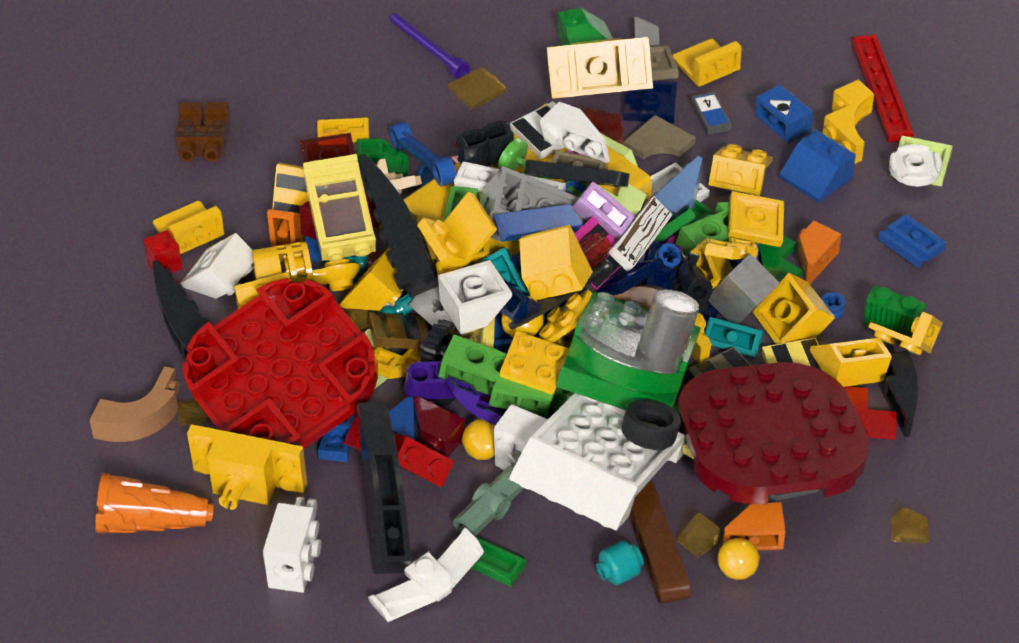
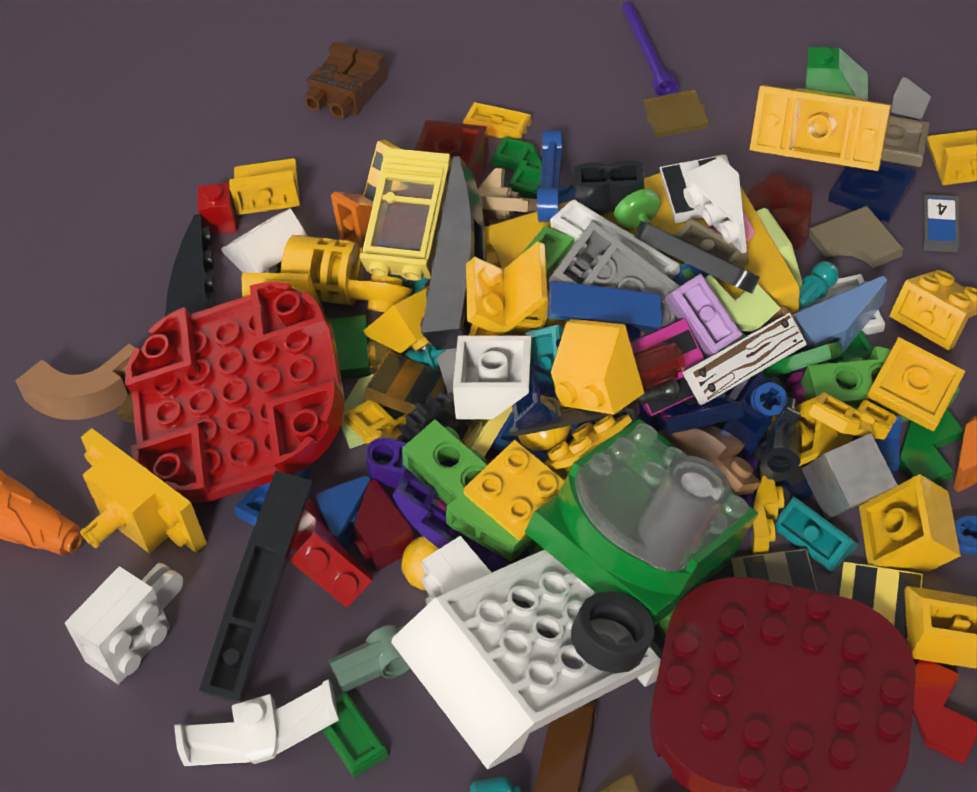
camera: 30 degrees right, 5 degrees up
(655, 170) = (815, 286): none -> teal axle

